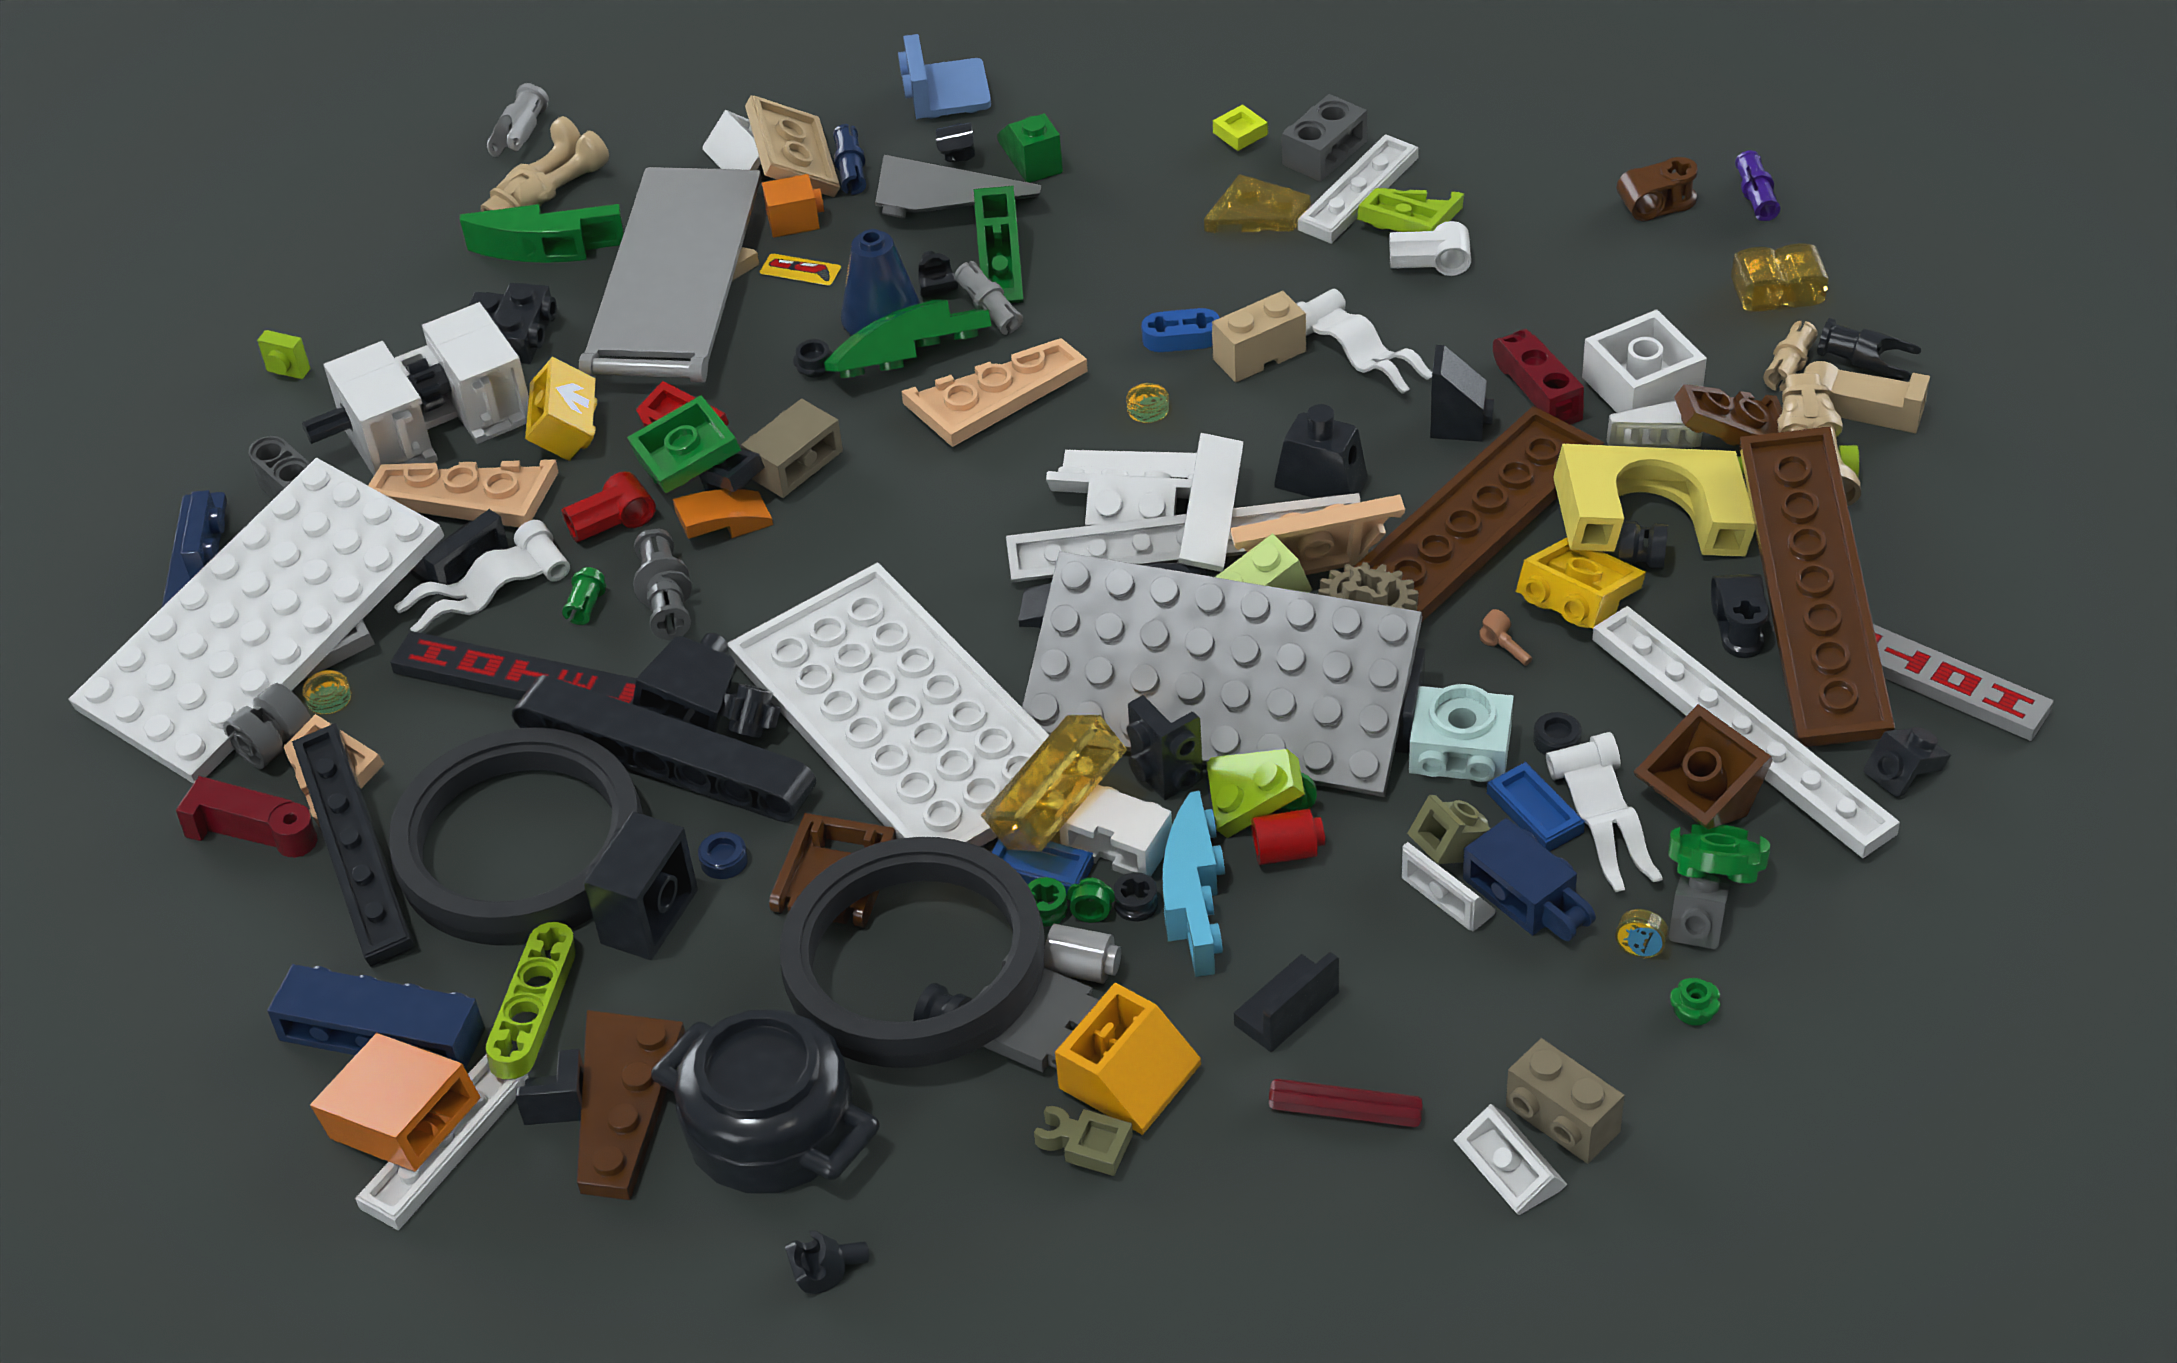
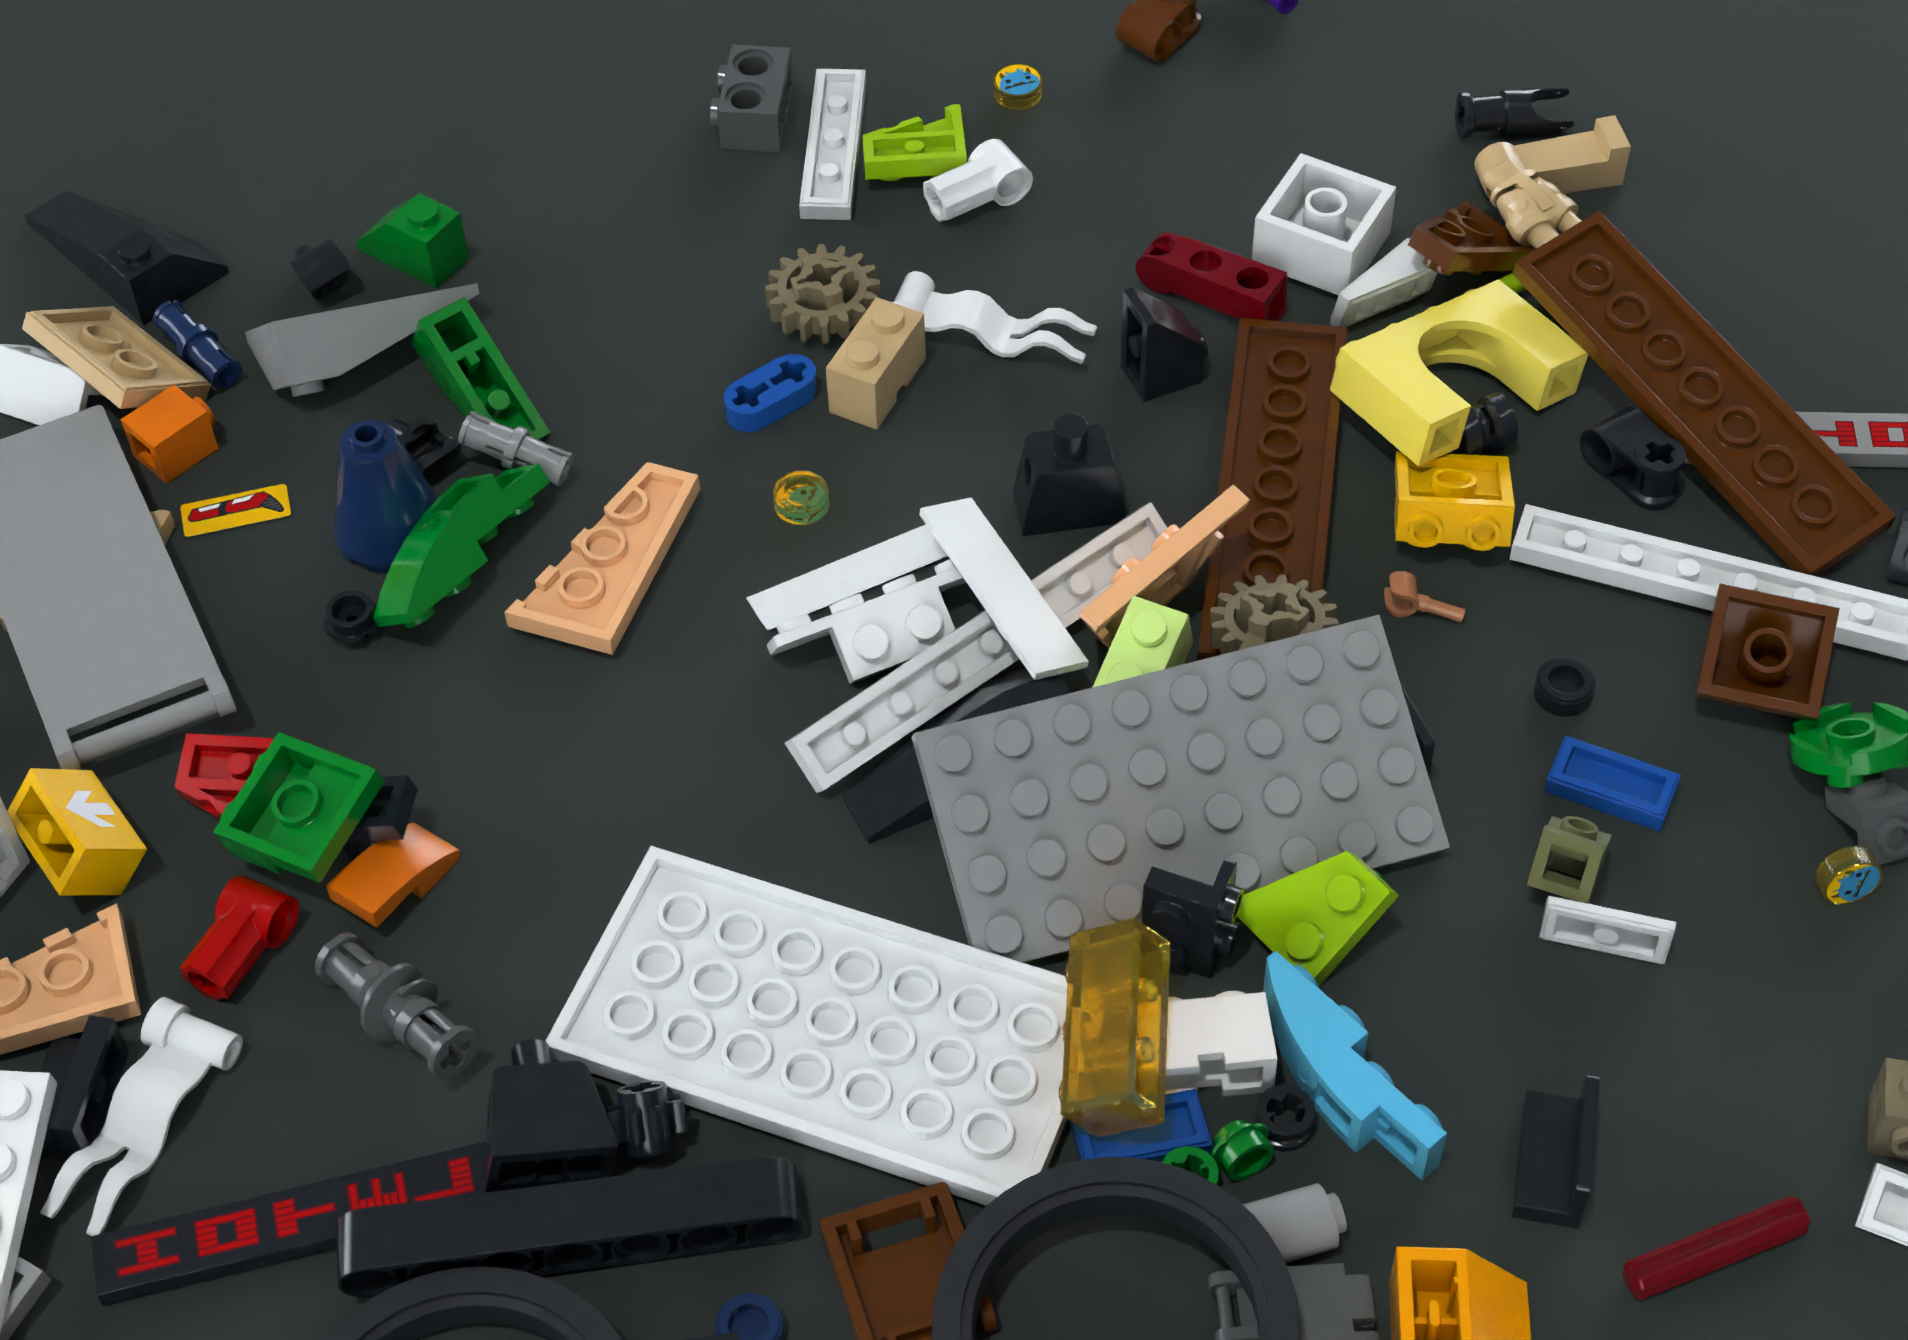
camera: 35 degrees left, 5 degrees up
(587, 587) = (291, 1056): green pin -> none
(795, 446) = (430, 740): dark tan brick -> none
(855, 88) = (126, 255): none -> black wedge
(942, 86) = (243, 207): medium blue bracket -> none
(1240, 127) = (646, 123): neon yellow plate -> none
(1257, 206) = (739, 209): clear yellow wing -> none
(1262, 274) = (821, 292): none -> dark tan gear
(1287, 836) = (1395, 955): red brick -> none
(1460, 733) = (1485, 736): light aqua brick -> none
(1518, 197) = (1017, 86): none -> tile
(1526, 881) = (1692, 877): dark blue brick -> none
(1599, 803) = (1662, 739): white flag -> none
(1779, 277) = (1364, 68): clear yellow brick -> none
(1790, 354) = (1444, 150): tan pin -> none

